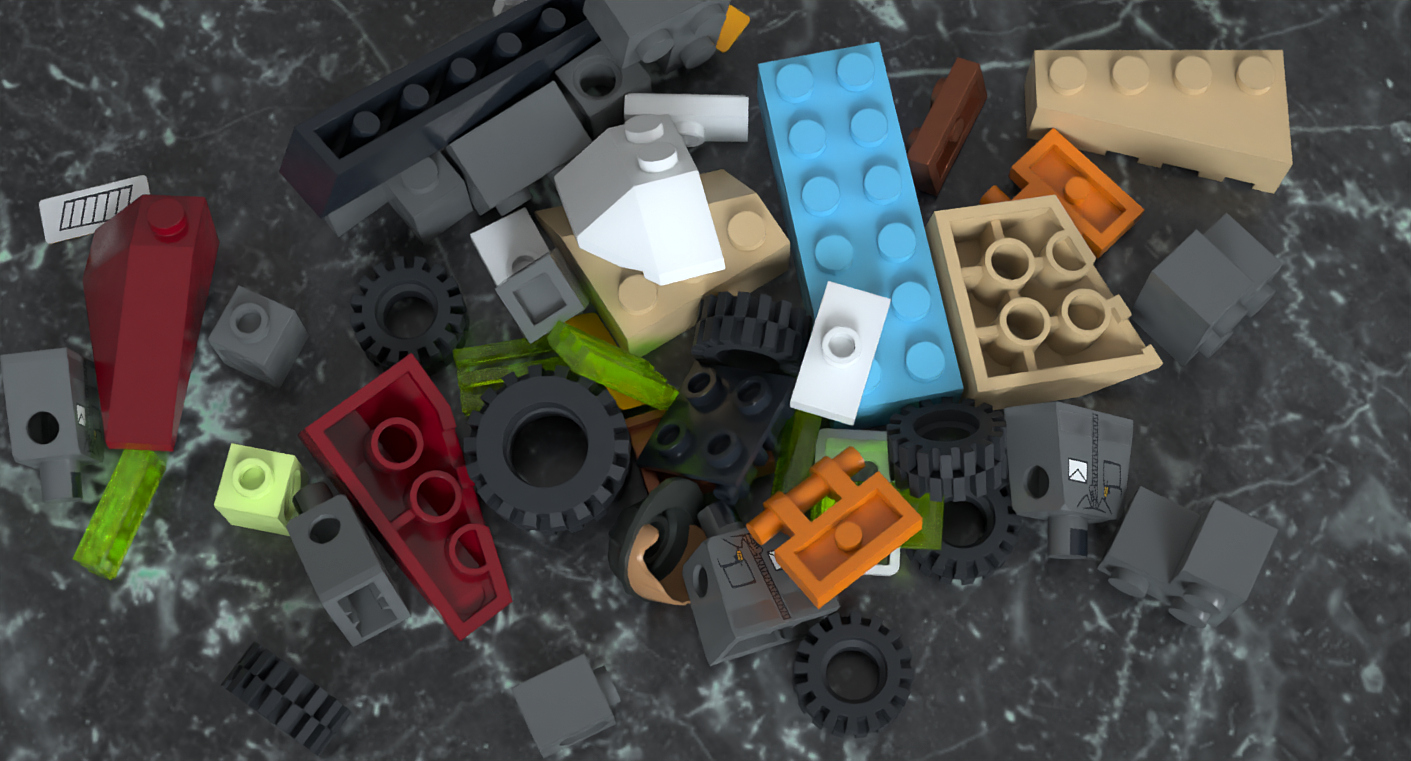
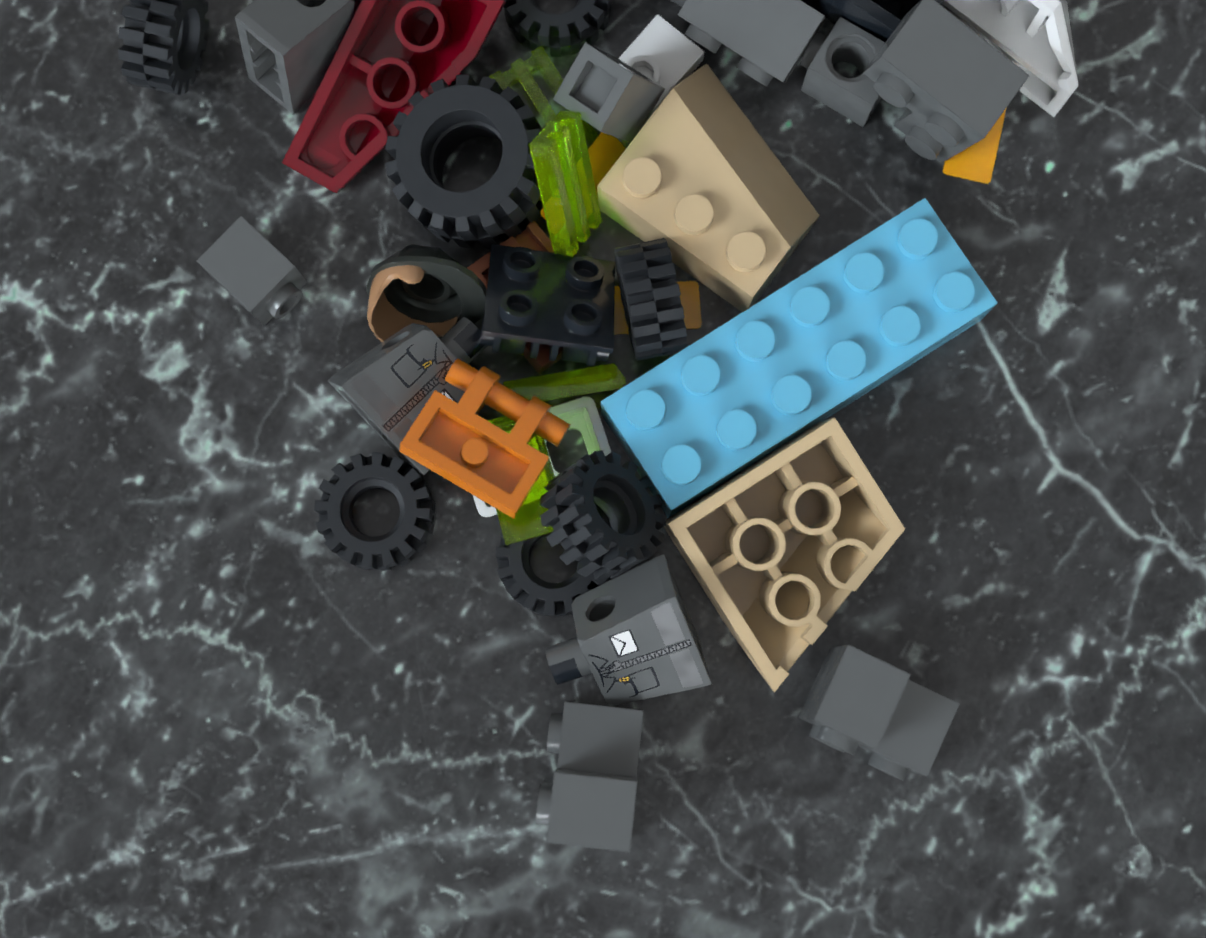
camera: 70 degrees right, 10 degrees up
(641, 202) = (724, 140): white wedge -> none
(696, 115) = (851, 159): white plate -> none
(840, 353) = (652, 380): white plate -> none
(952, 113) = (947, 405): copper plate -> none
(1087, 194) = (928, 550): orange plate -> none
(1168, 107) = (1057, 617): tan wedge -> none

